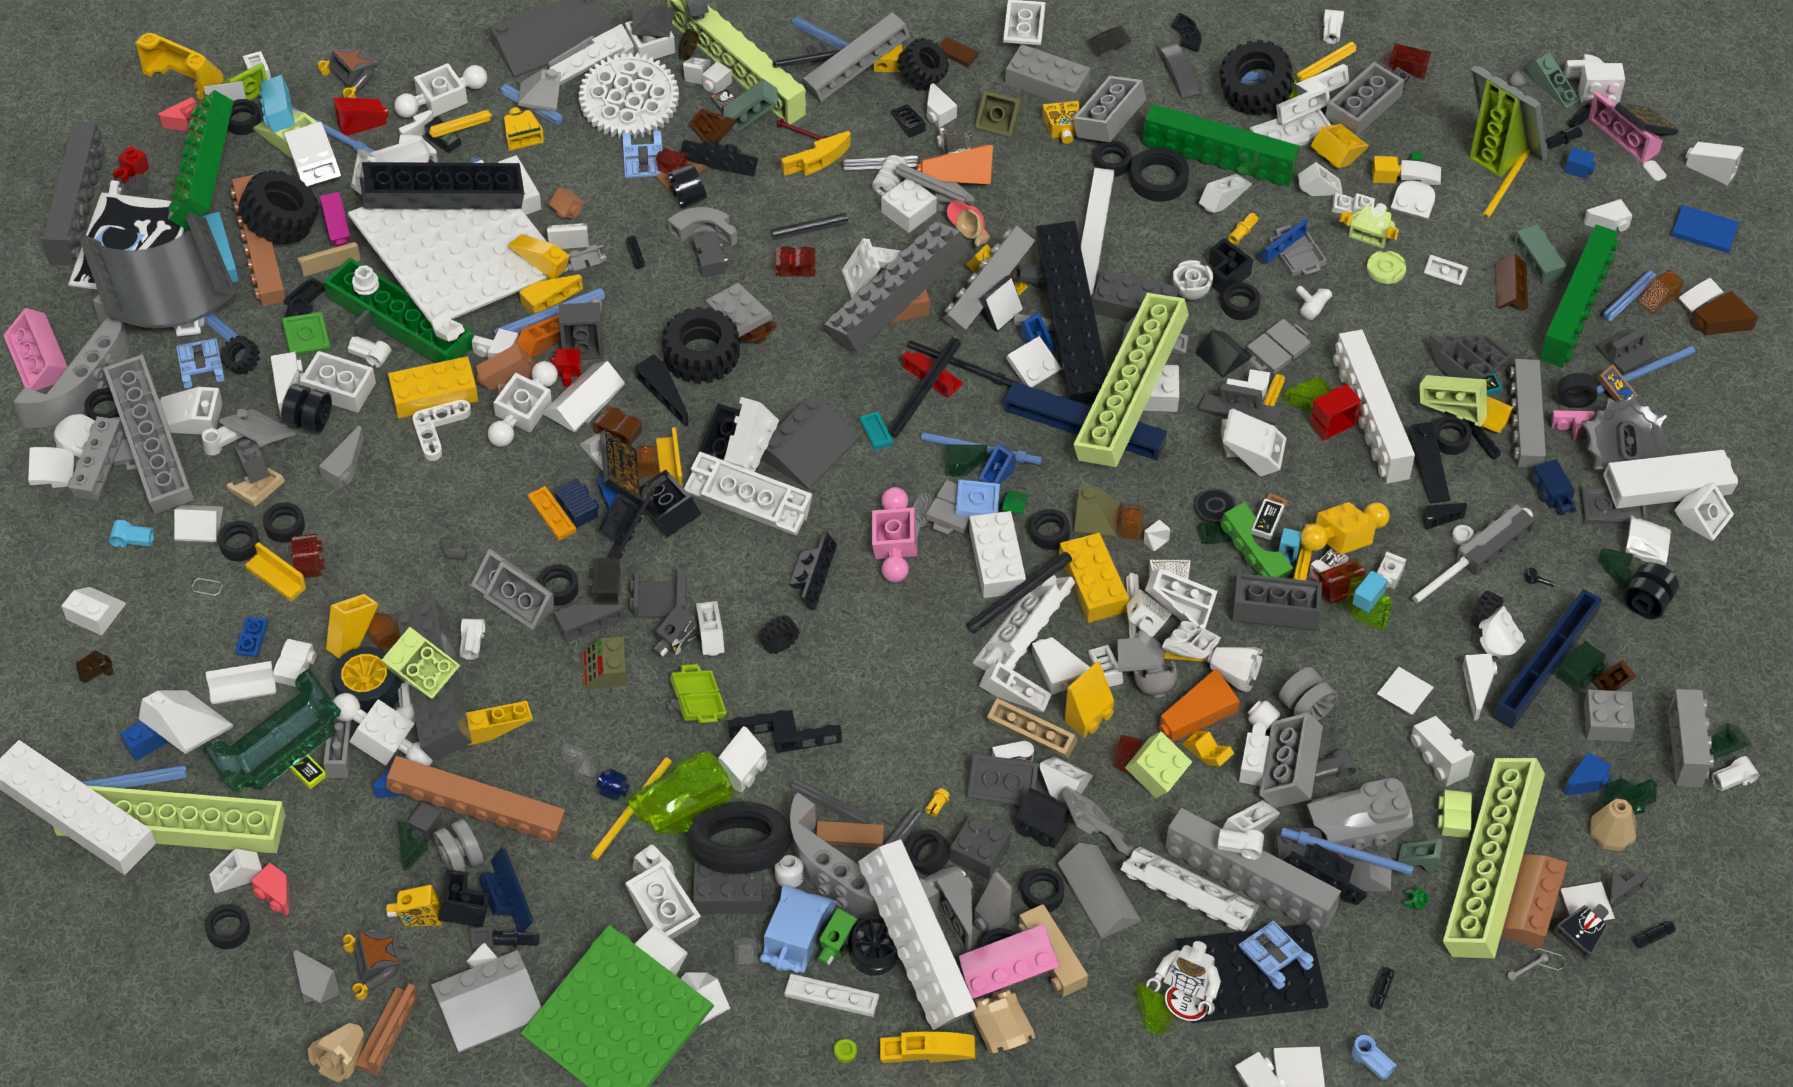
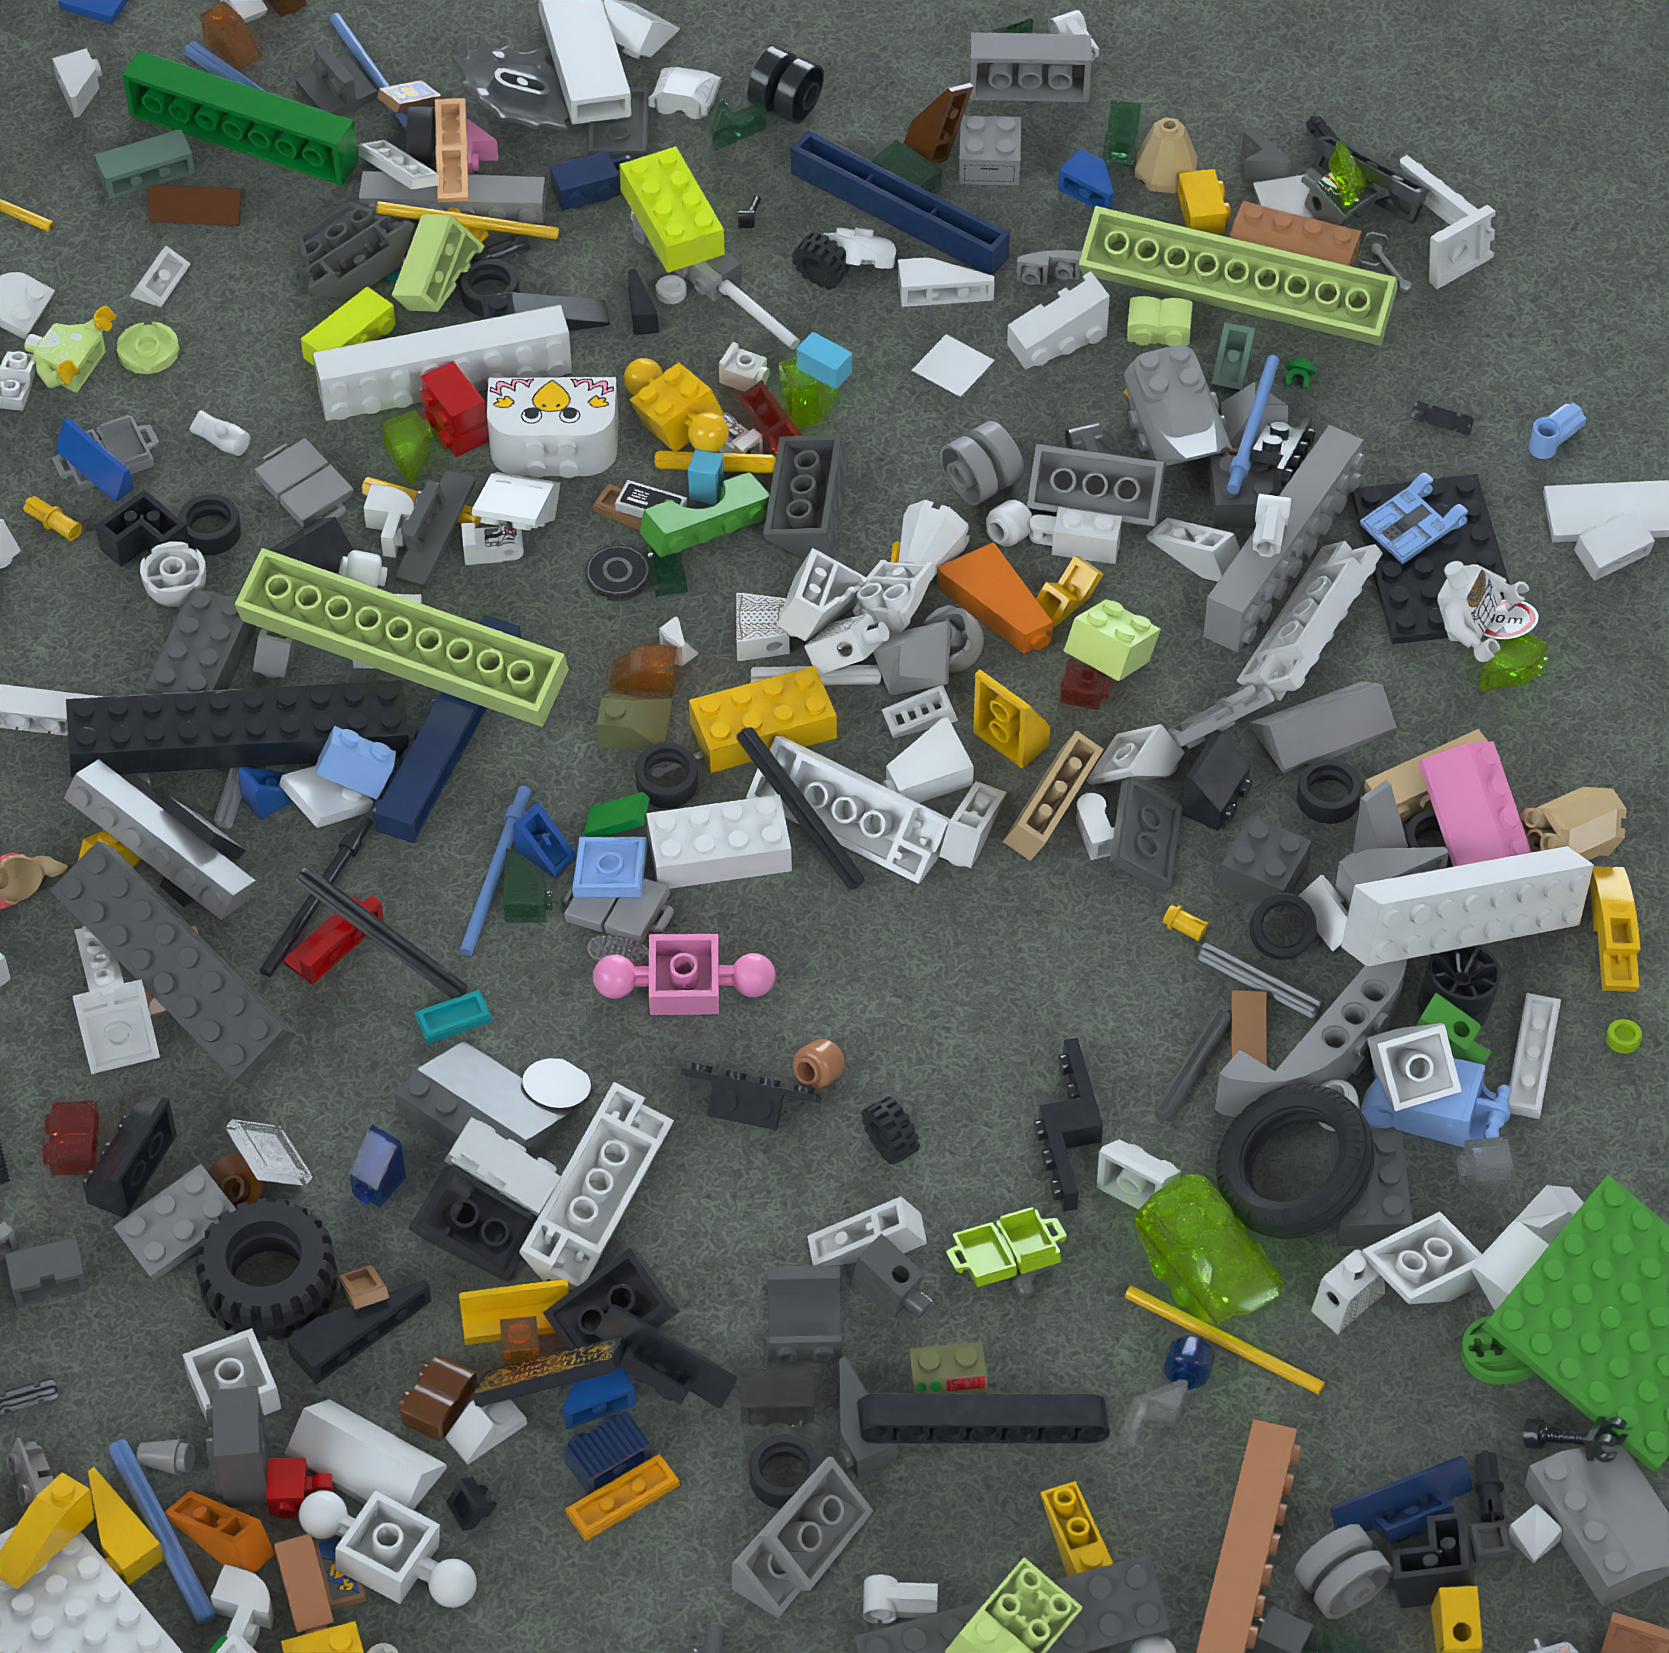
camera: 90 degrees left, 0 degrees up
(535, 989) = (1537, 1434): none -> black bar
(551, 441) = (469, 1503): none -> black tile
(576, 674) = (983, 1418): none -> black beam
(631, 333) = (231, 1364): none -> white brick
(687, 388) = (363, 1287): none -> medium nougat tile
(766, 391) = (377, 1167): none -> clear blue slope
(777, 285) = (131, 1157): none -> black slope
(777, 343) = (268, 1152): none -> clear tile
(801, 899) = (1414, 1064): none -> white slope
(826, 479) = (556, 1083): none -> white sticker
(831, 602) = (818, 1063): none -> nougat head
(1047, 368) = (355, 762): none -> light blue brick
(1204, 375) = (363, 568): none -> white head
(1324, 463) = (553, 425): none -> white brick
(1403, 361) = (356, 322): none -> neon yellow brick
(1499, 415) = (470, 220): none -> yellow piece
(1499, 742) = (1037, 266): none -> light grey slope
(1514, 519) = (672, 209): none -> neon yellow brick
(1543, 377) = (398, 164): none -> white tile
(1550, 403) = (451, 150): none -> light nougat slope
(1550, 1014) = (1467, 238): none -> white bracket
(1575, 845) = (1203, 201): none -> yellow brick
(1591, 927) = (1346, 175): none -> clear neon green slope
(1609, 950) = (1379, 174): none -> black fence

